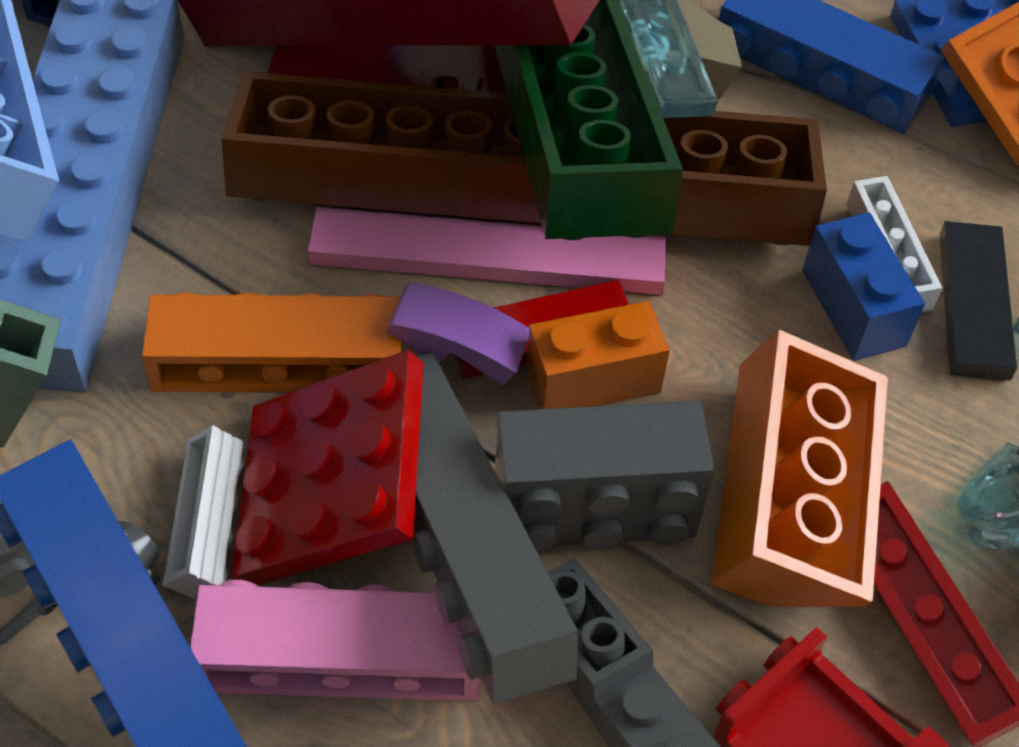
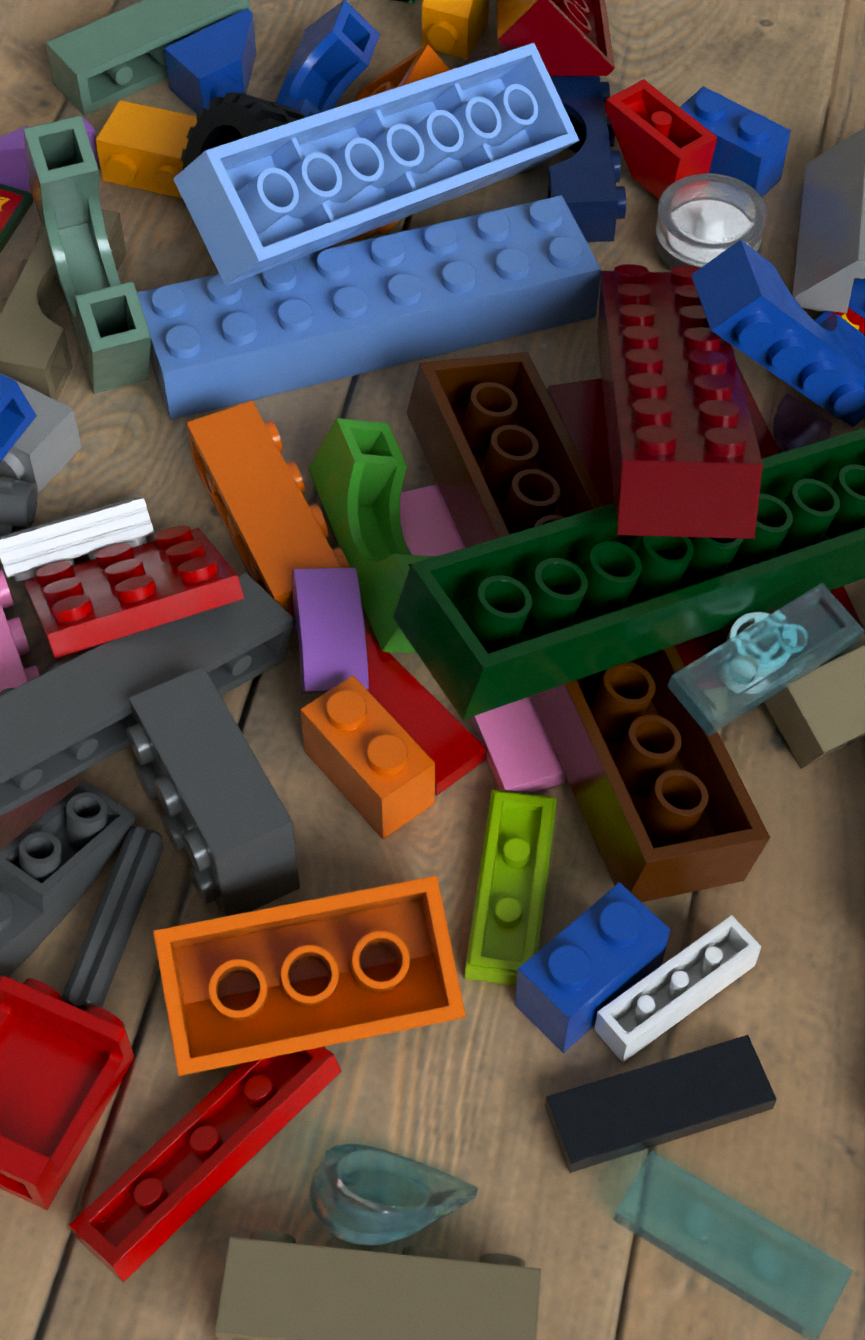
camera: 70 degrees right, 0 degrees up
(295, 254) = (360, 488): none -> bright green arch
(671, 621) = (114, 919): none -> dark grey axle
(739, 308) = (510, 886): none -> lime tile

